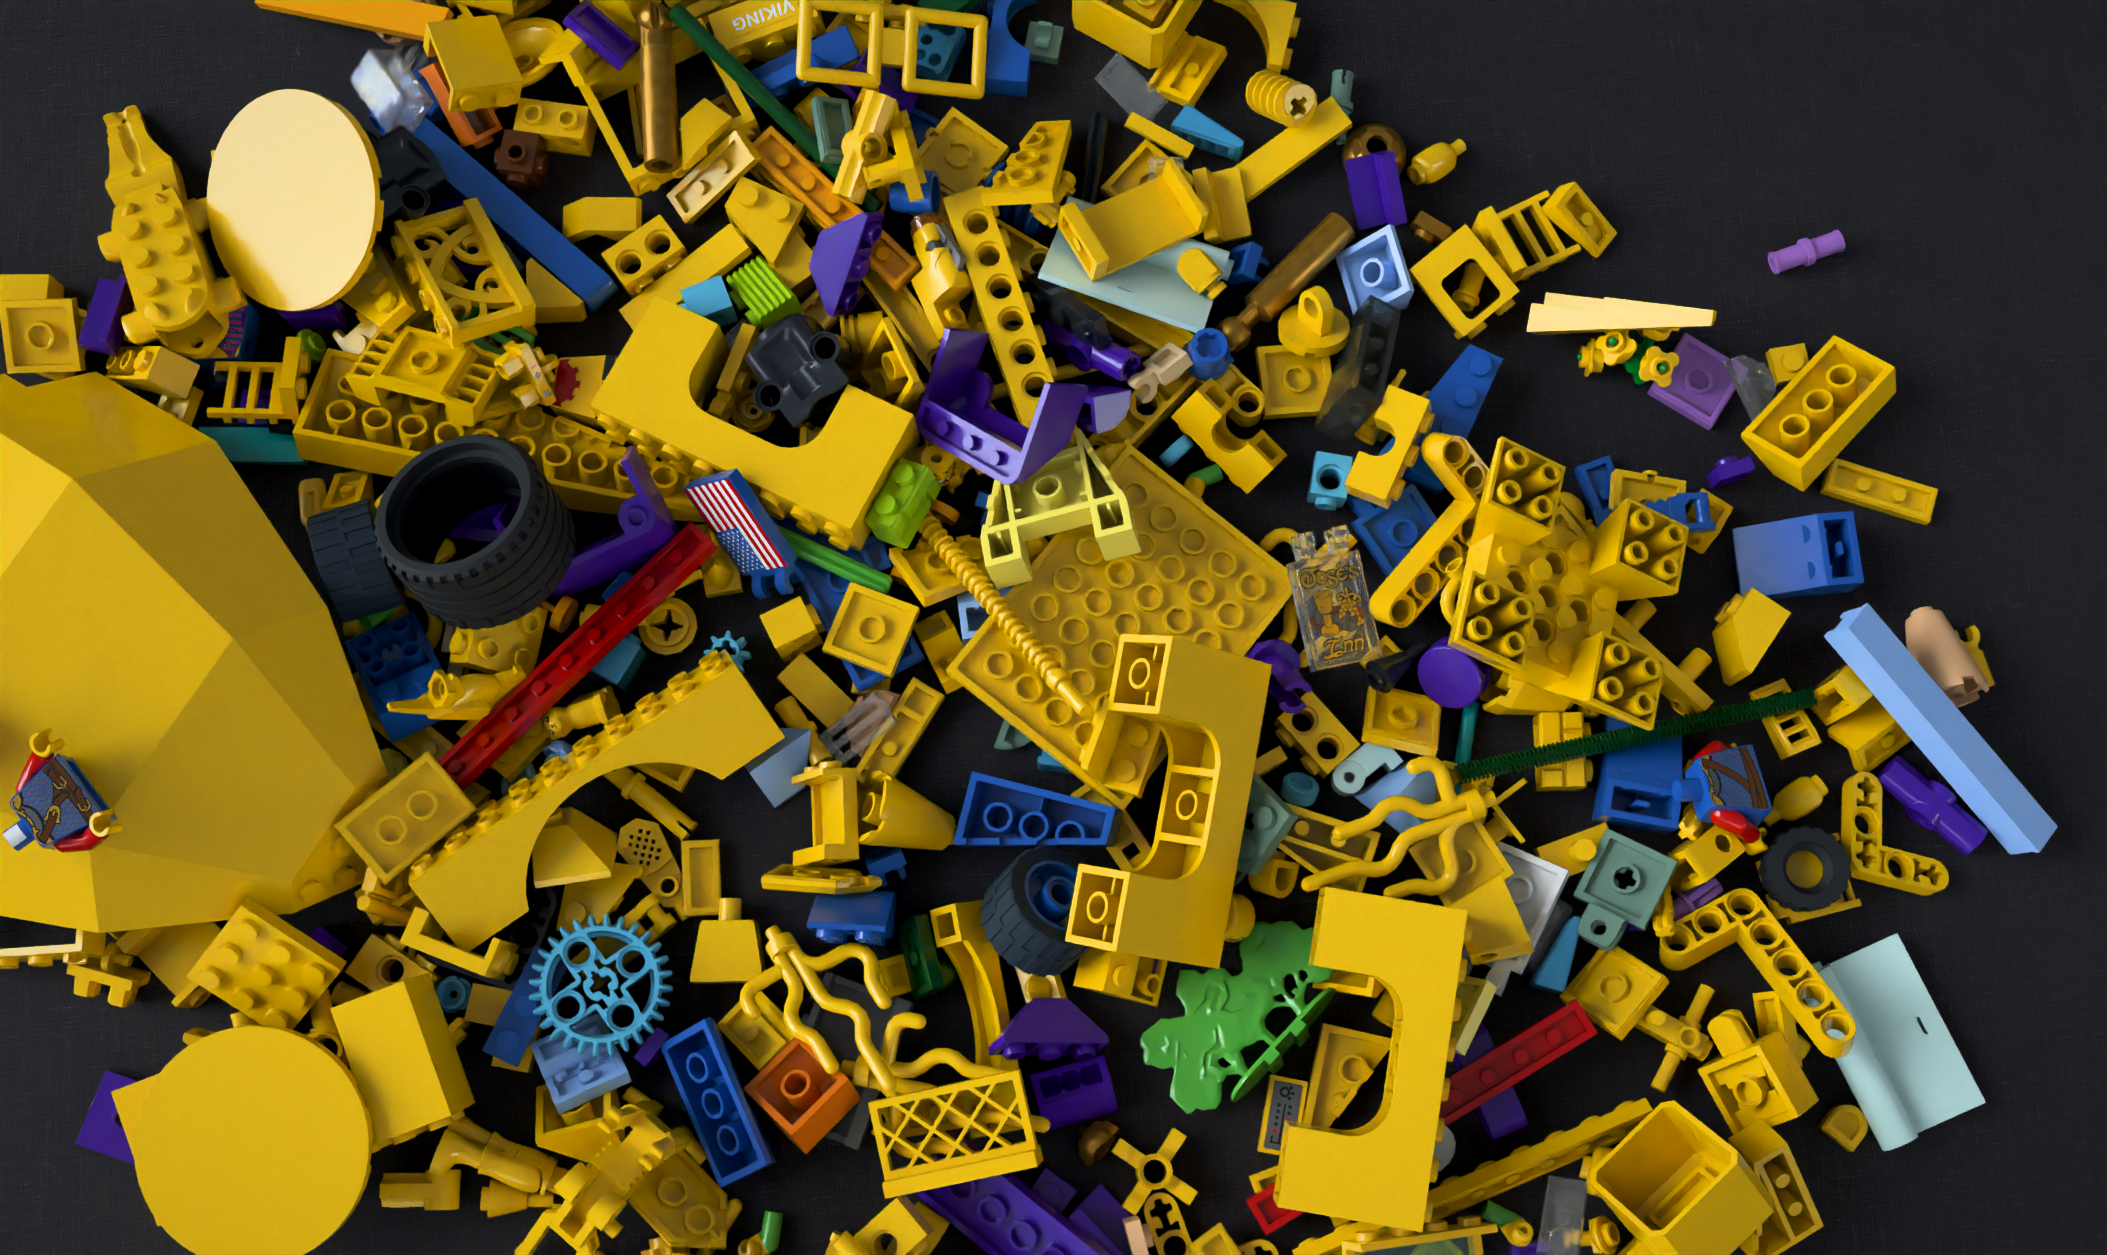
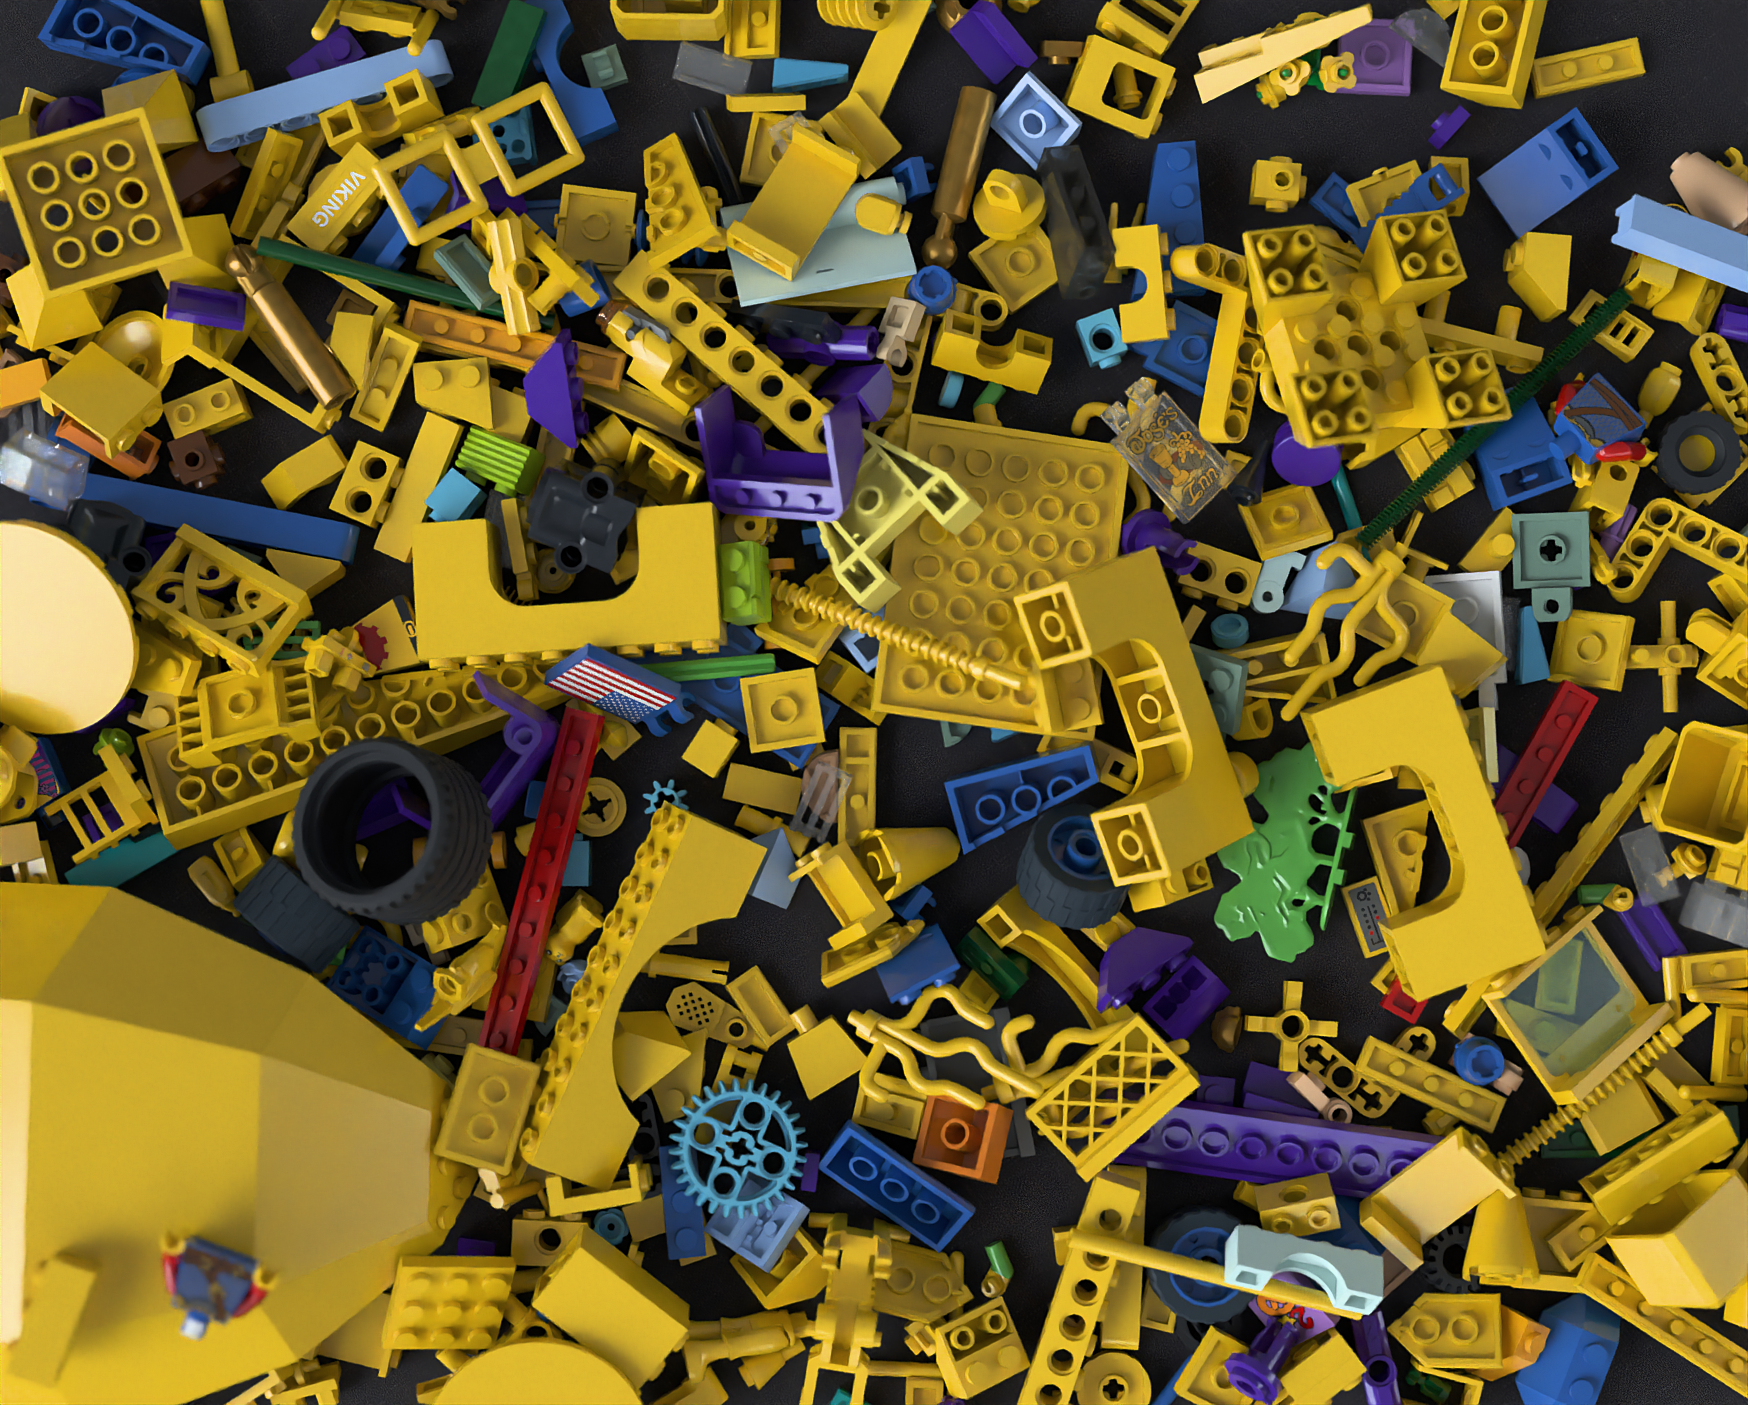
camera: 35 degrees left, 10 degrees up
(1554, 434) = (1268, 193): none -> yellow brick

